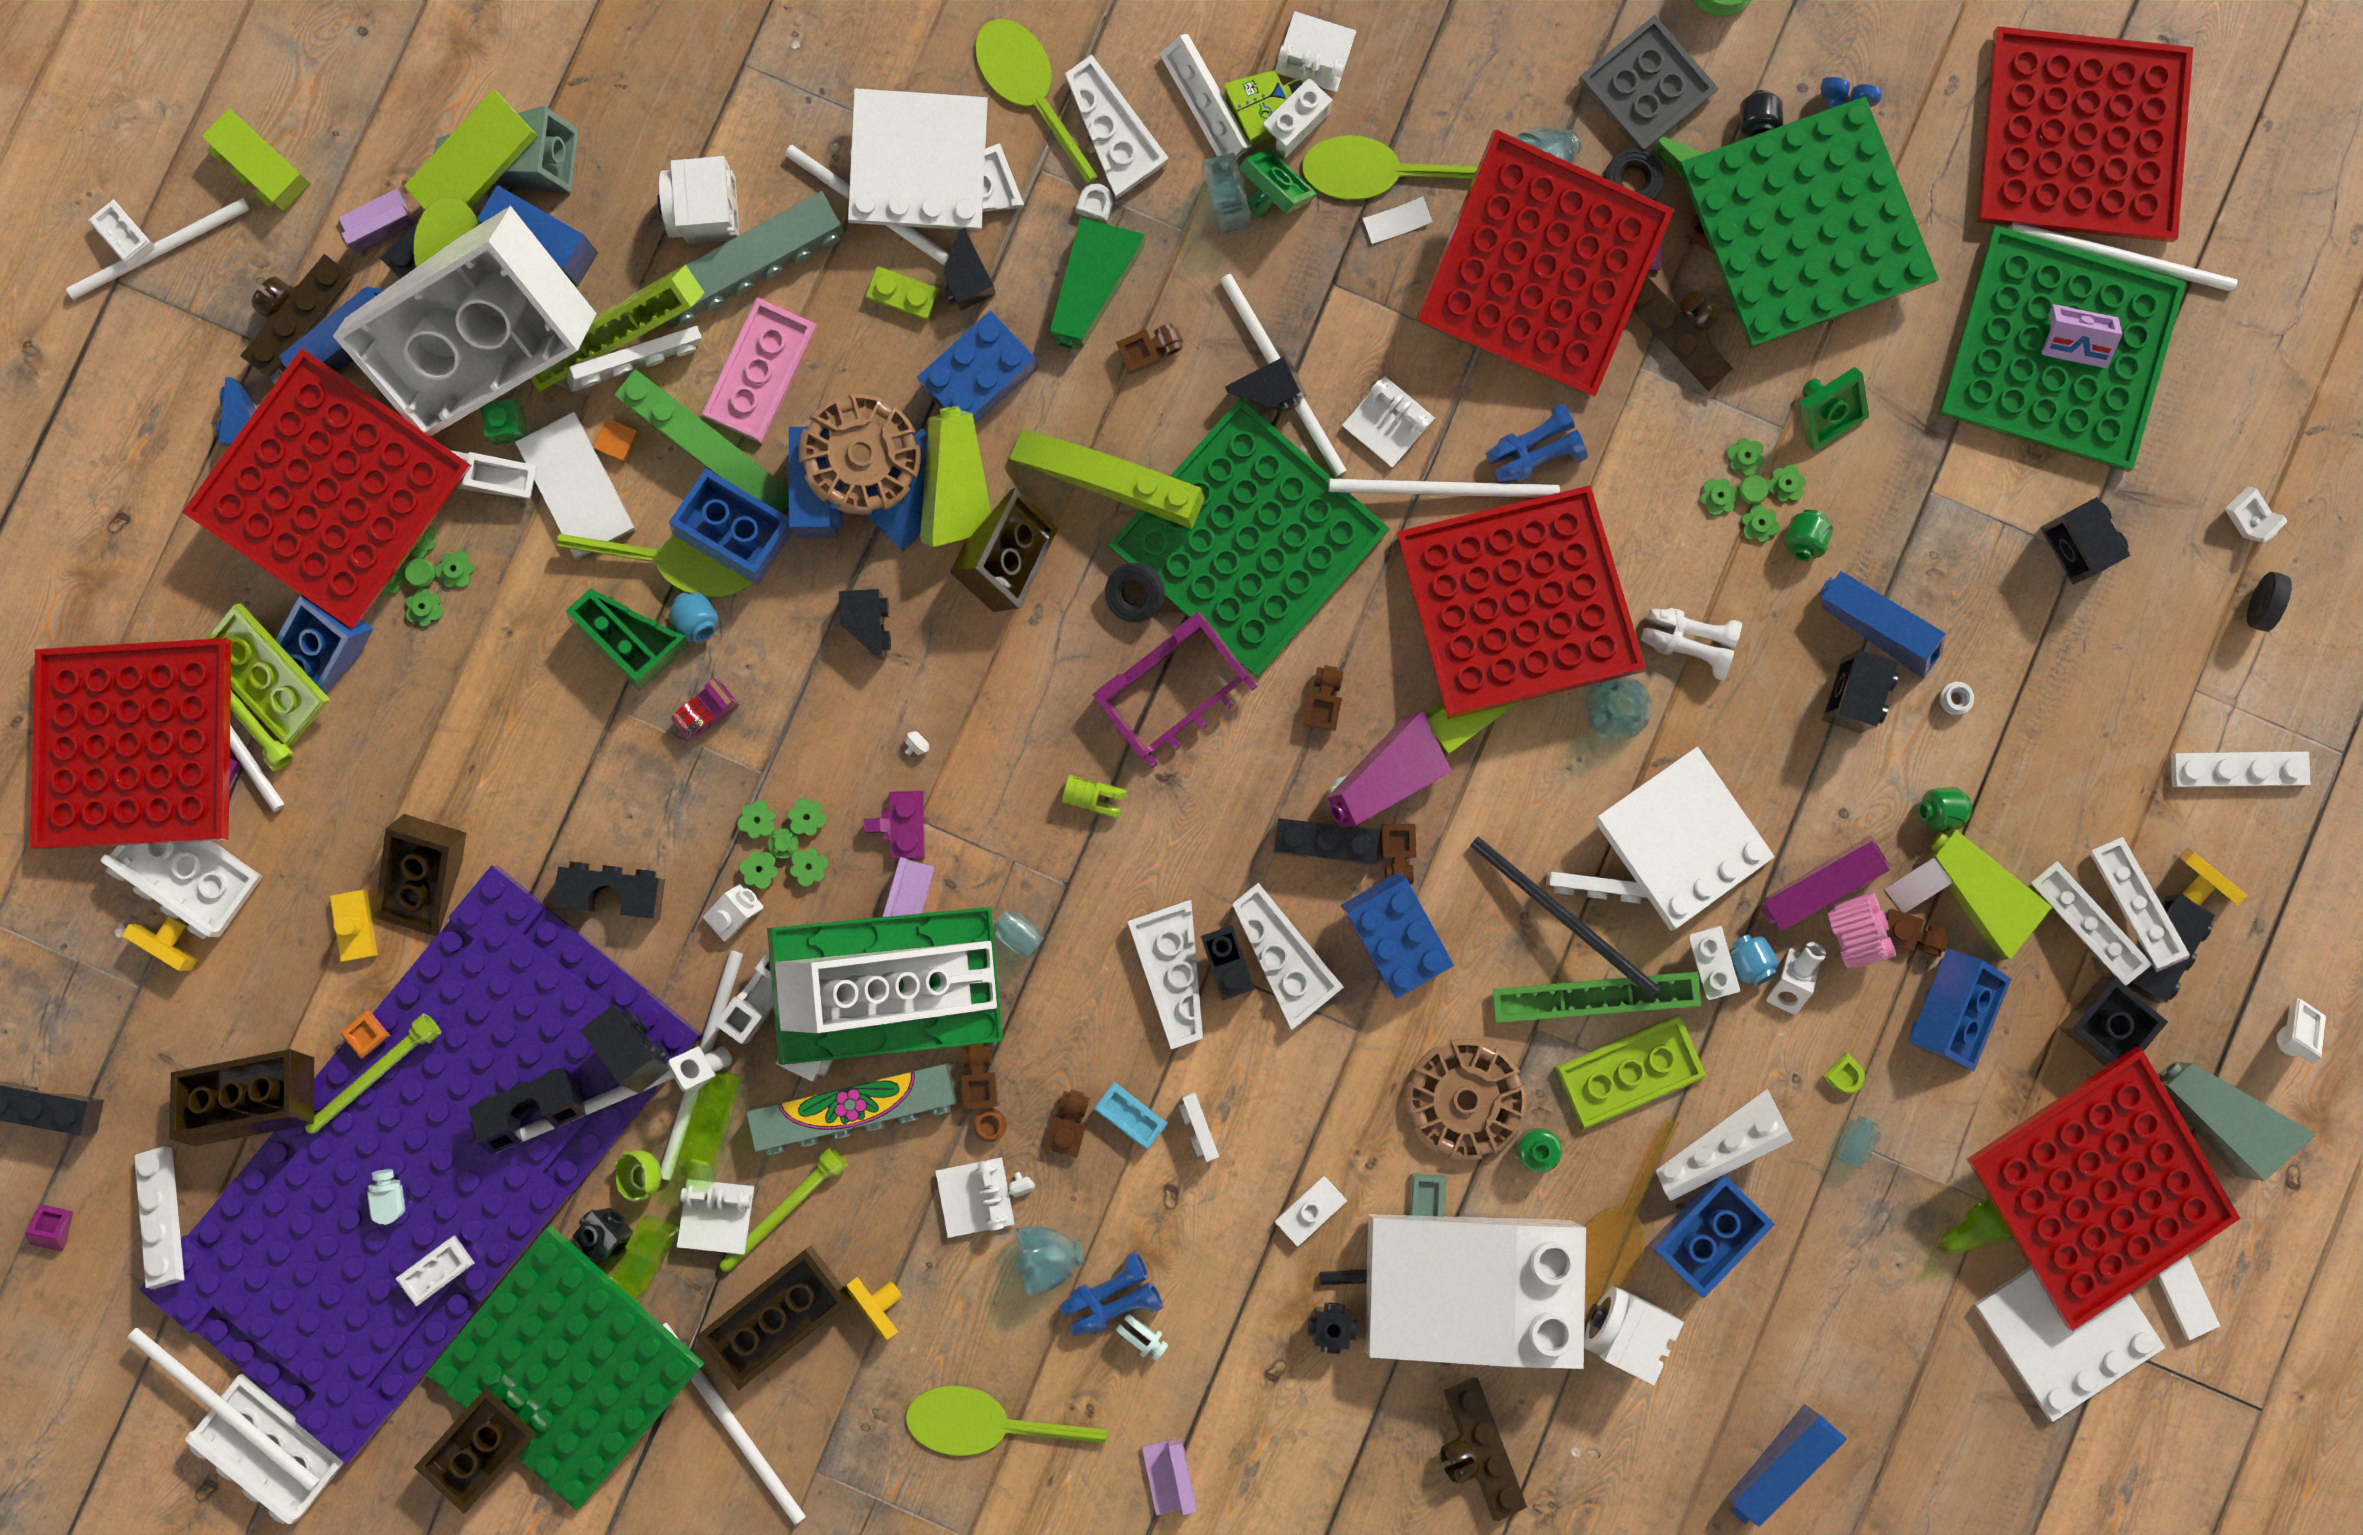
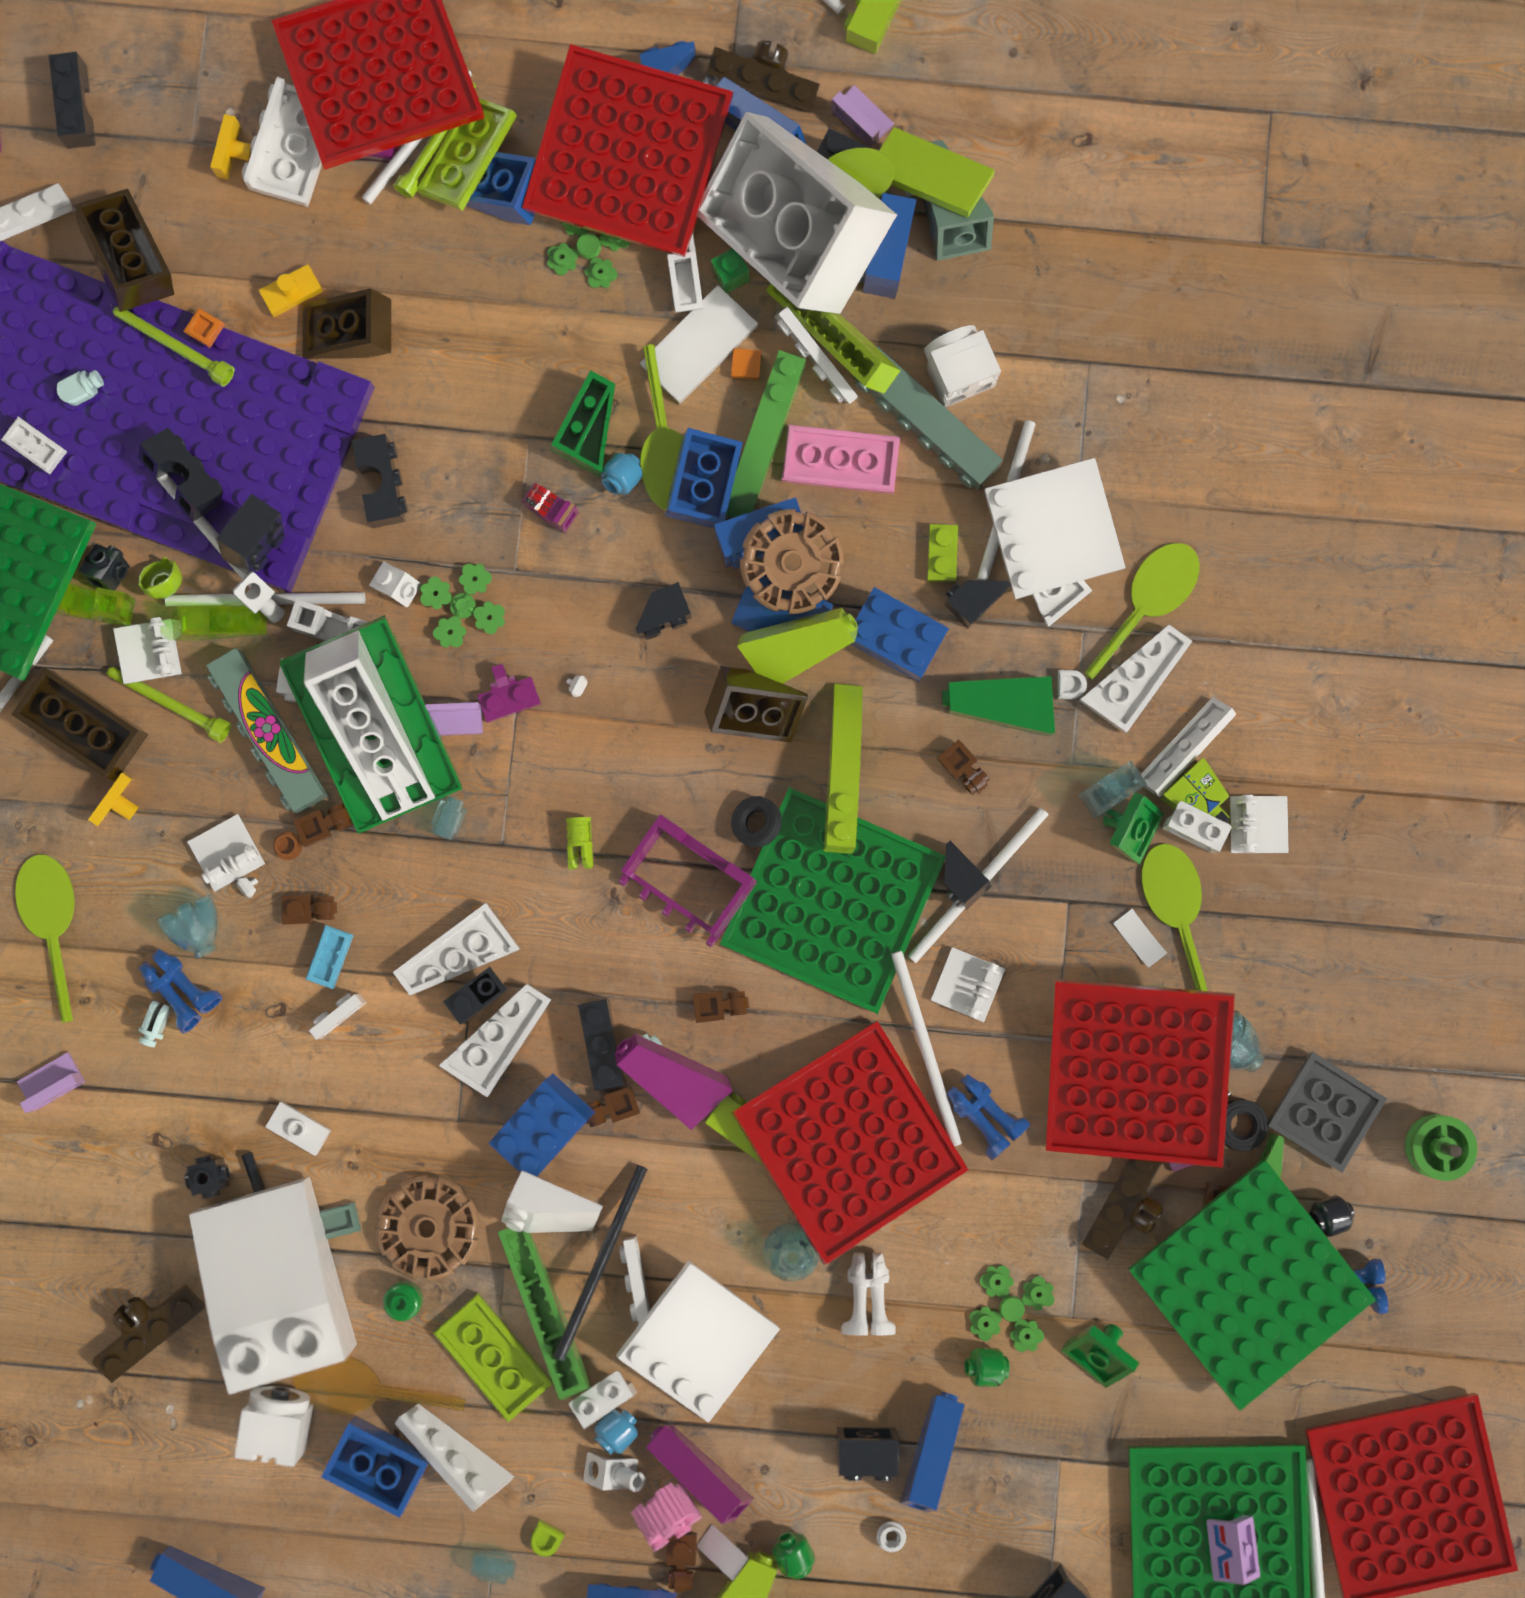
camera: 70 degrees right, 0 degrees up
(1486, 957) = (544, 1207): none -> white slope

